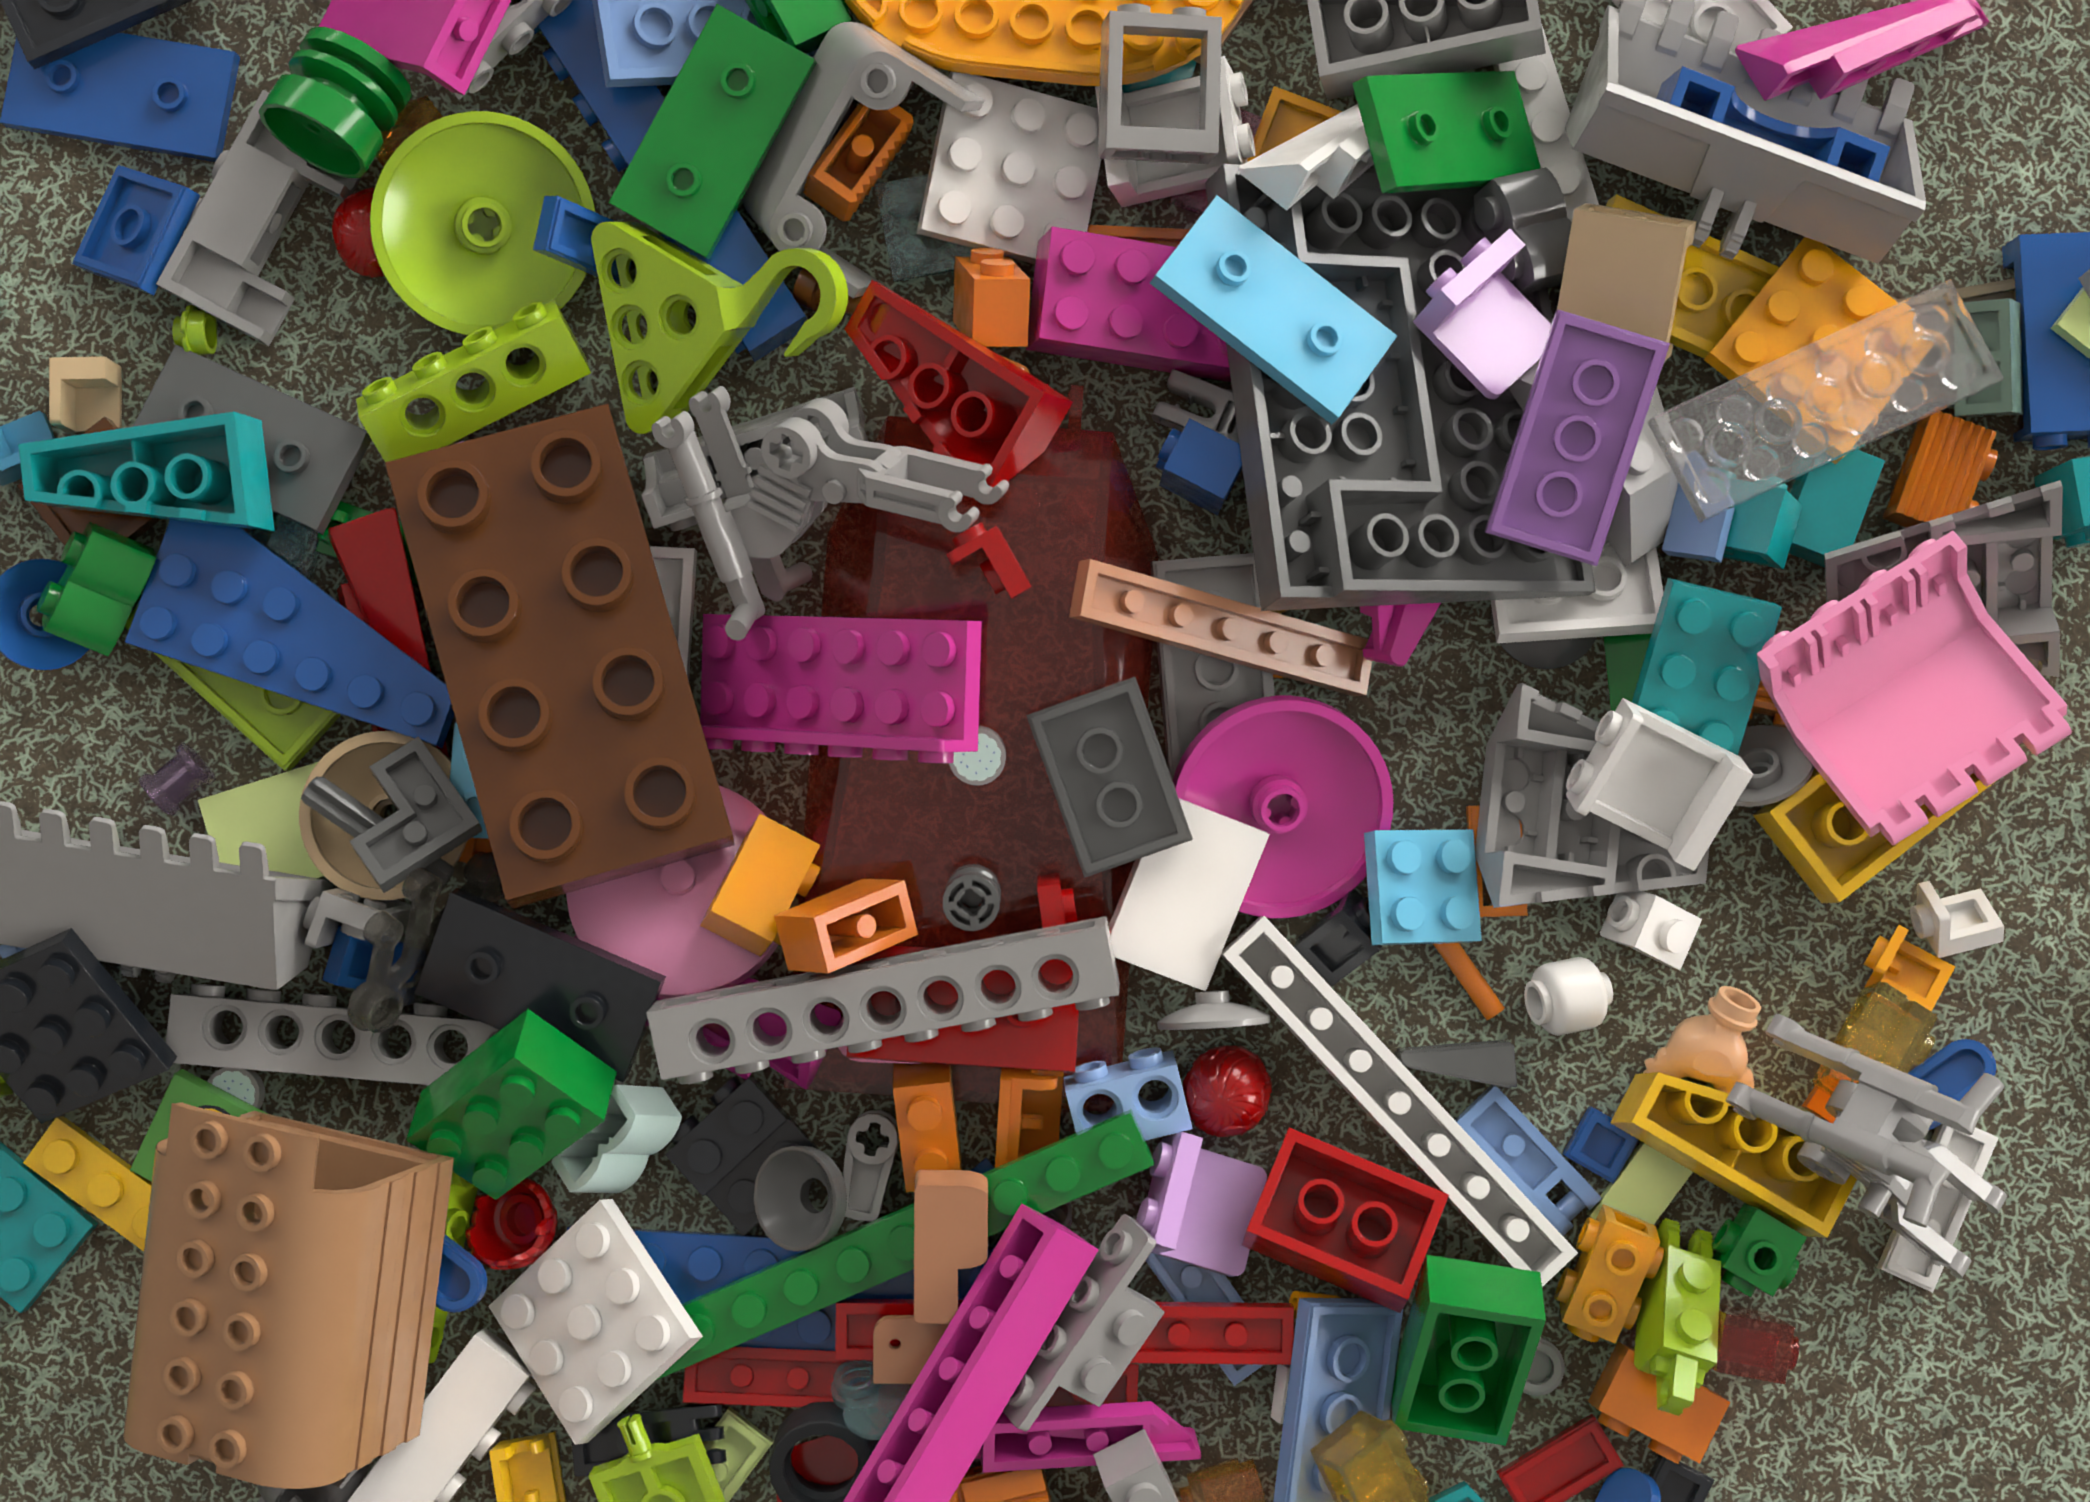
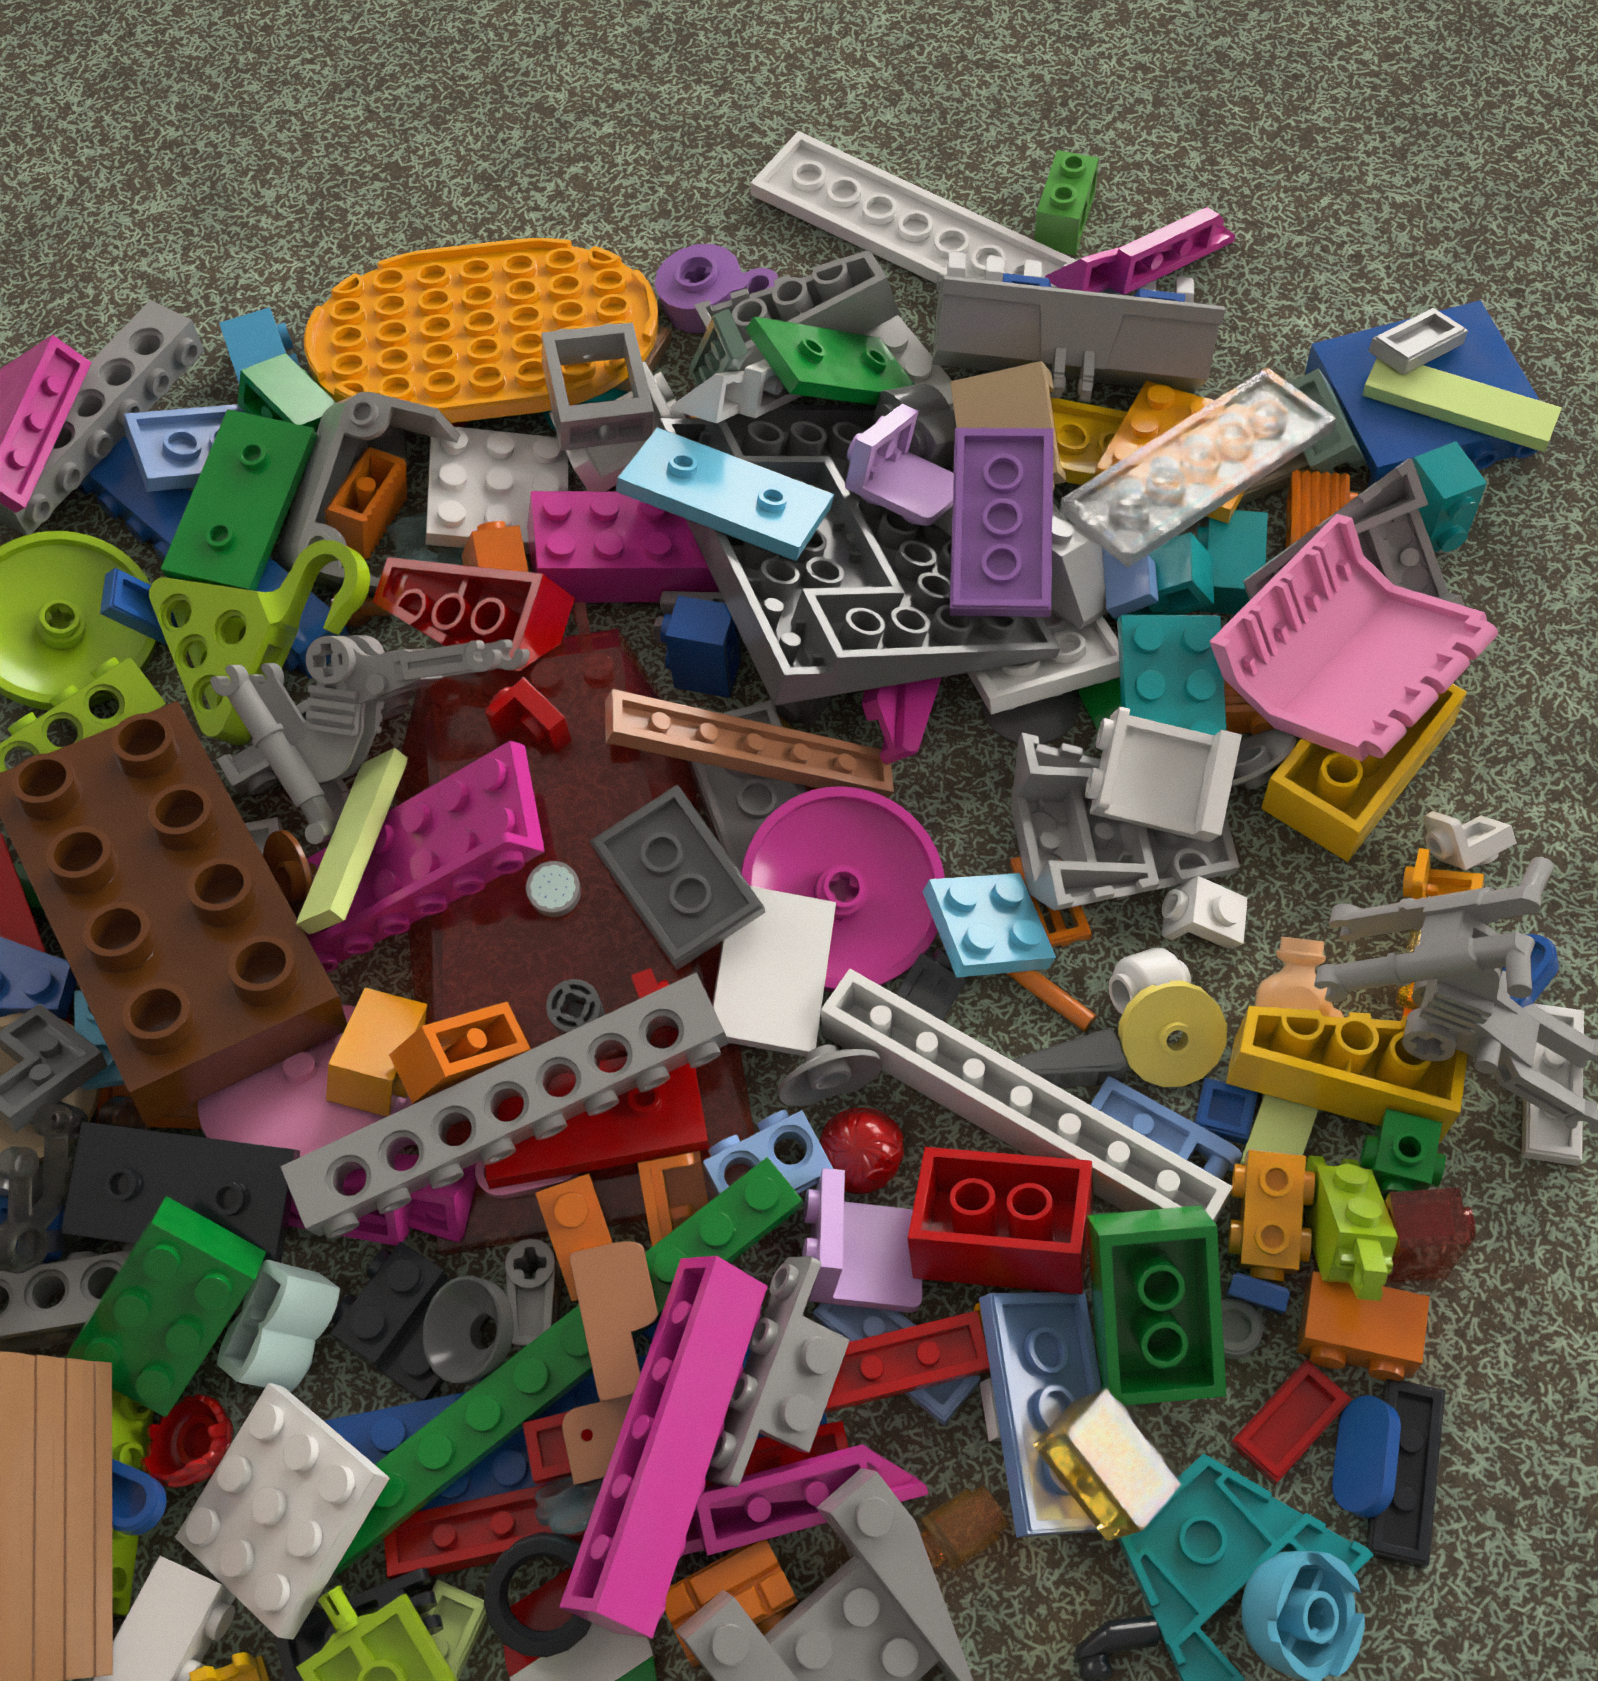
camera: 10 degrees left, 25 degrees down
(702, 653) = (289, 868): none -> dark orange dish
(775, 648) = (352, 842): none -> yellowish green tile
(1310, 106) = (719, 349): none -> sand green tile
(1568, 1348) = (1258, 1293): none -> blue tile
(1573, 1061) = (1155, 1015): none -> light yellow plate

